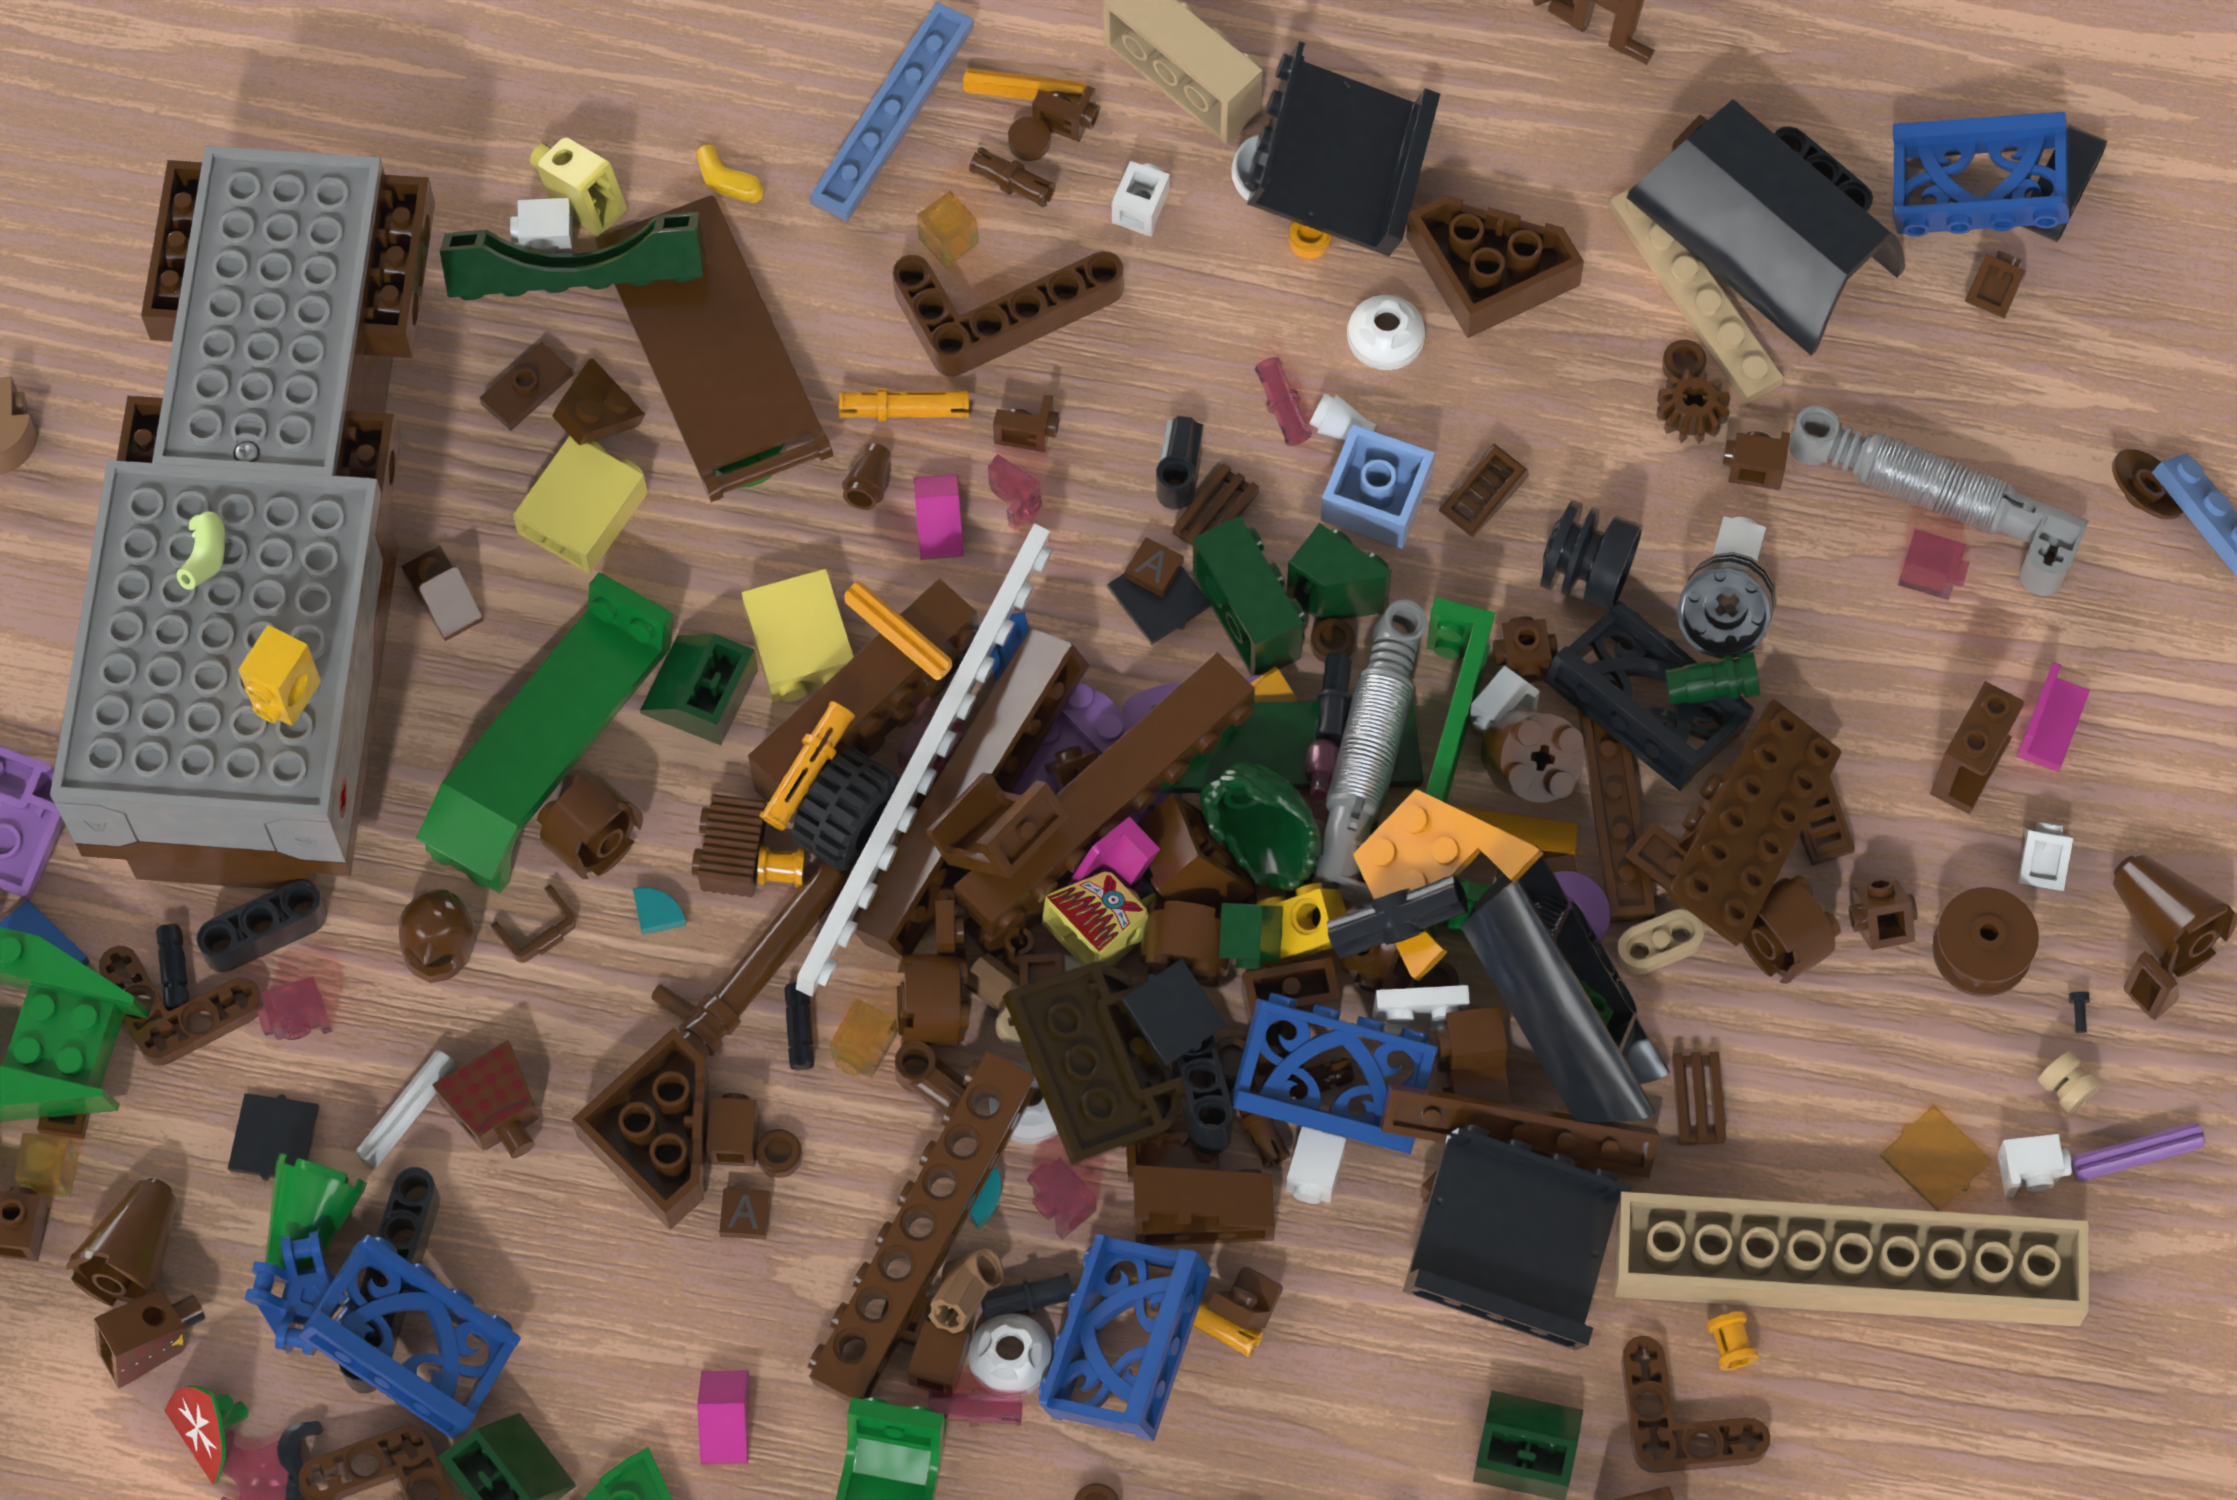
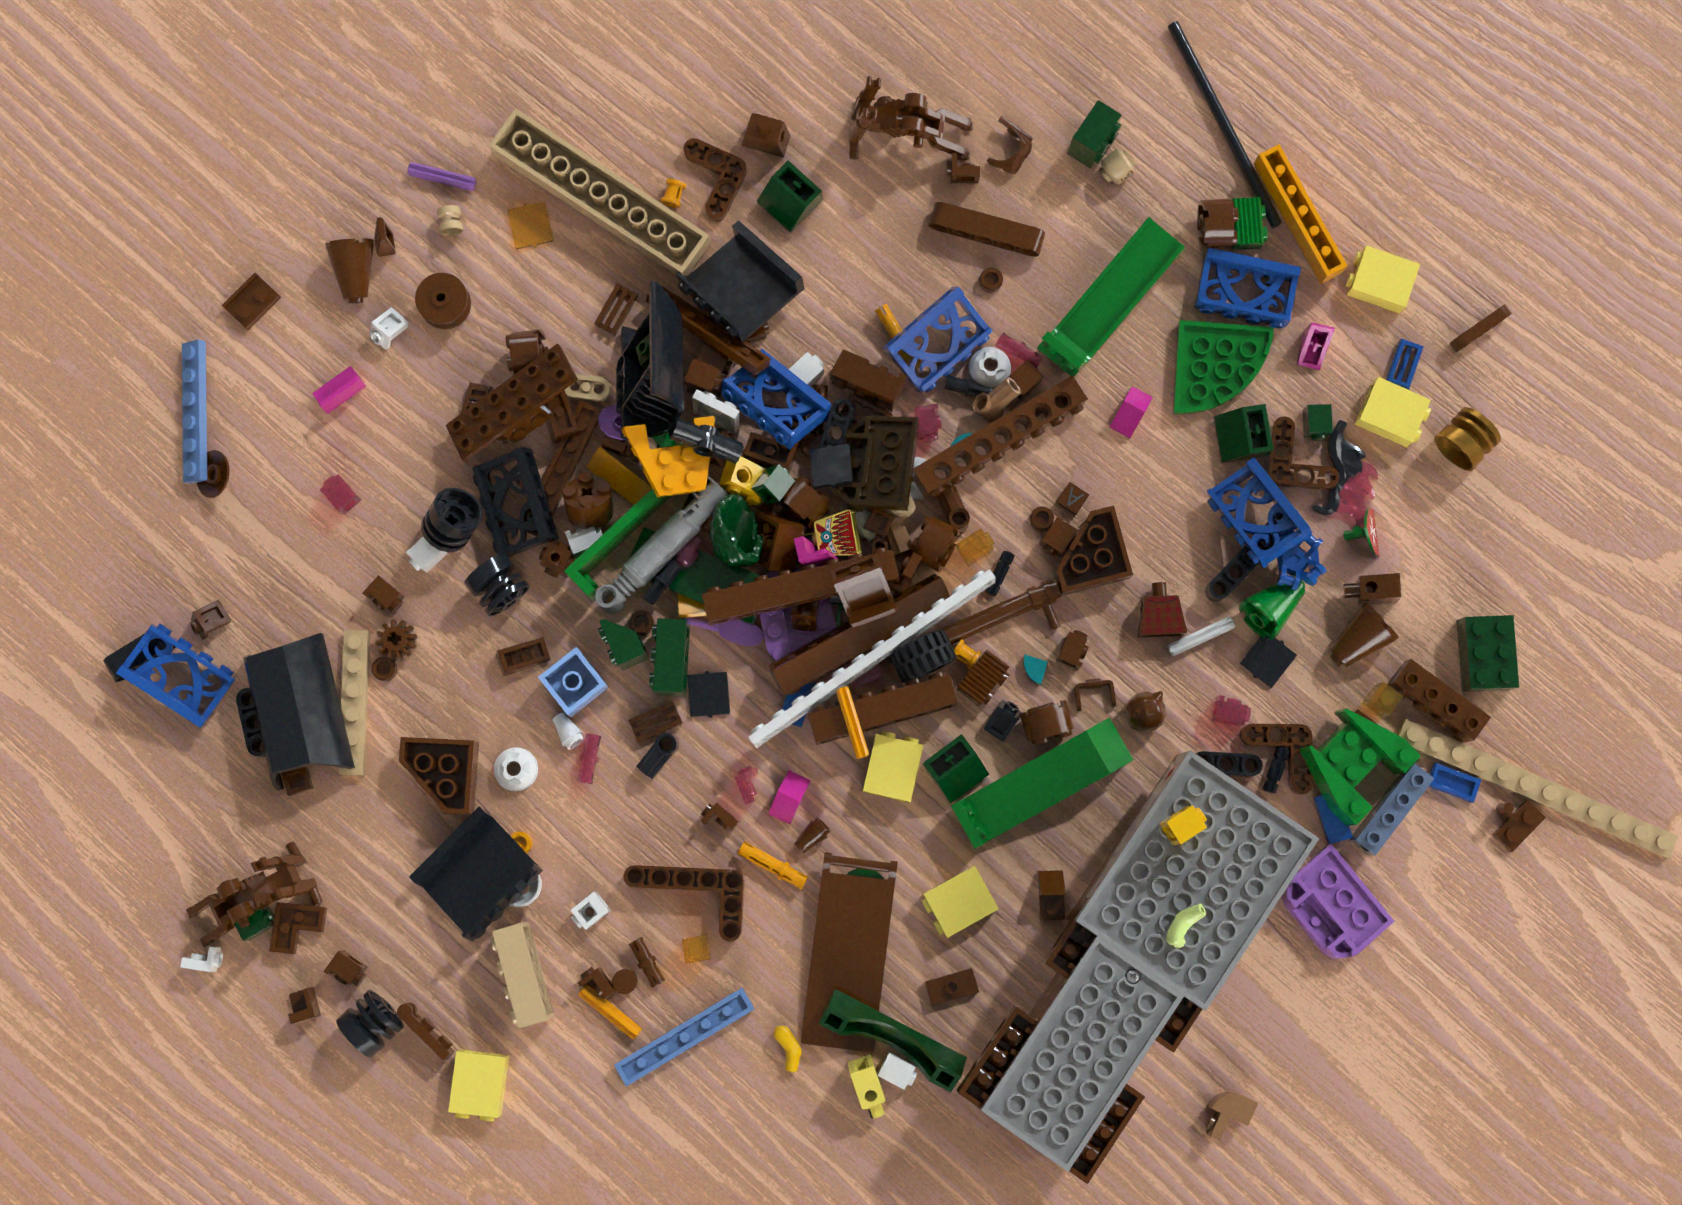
camera: 150 degrees left, 15 degrees up
(596, 406) = (925, 950): reddish brown wing -> none
(608, 967) = (1073, 649): none -> reddish brown brick
(663, 802) = (1003, 720): none -> black bracket
(836, 721) = (926, 680): light orange pin -> none
(1154, 567) = (703, 706): reddish brown tile -> none
(1249, 1301) = (874, 327): reddish brown bracket -> none
(1713, 680) = (482, 485): dark green axle -> none
(1883, 913) = (479, 338): reddish brown brick -> none
(1947, 486) = (305, 522): piece -> none
(1976, 747) = (384, 386): reddish brown panel -> none
(2032, 1163) = (492, 194): white brick -> none
(2080, 1000) = (419, 257): black piece -> none

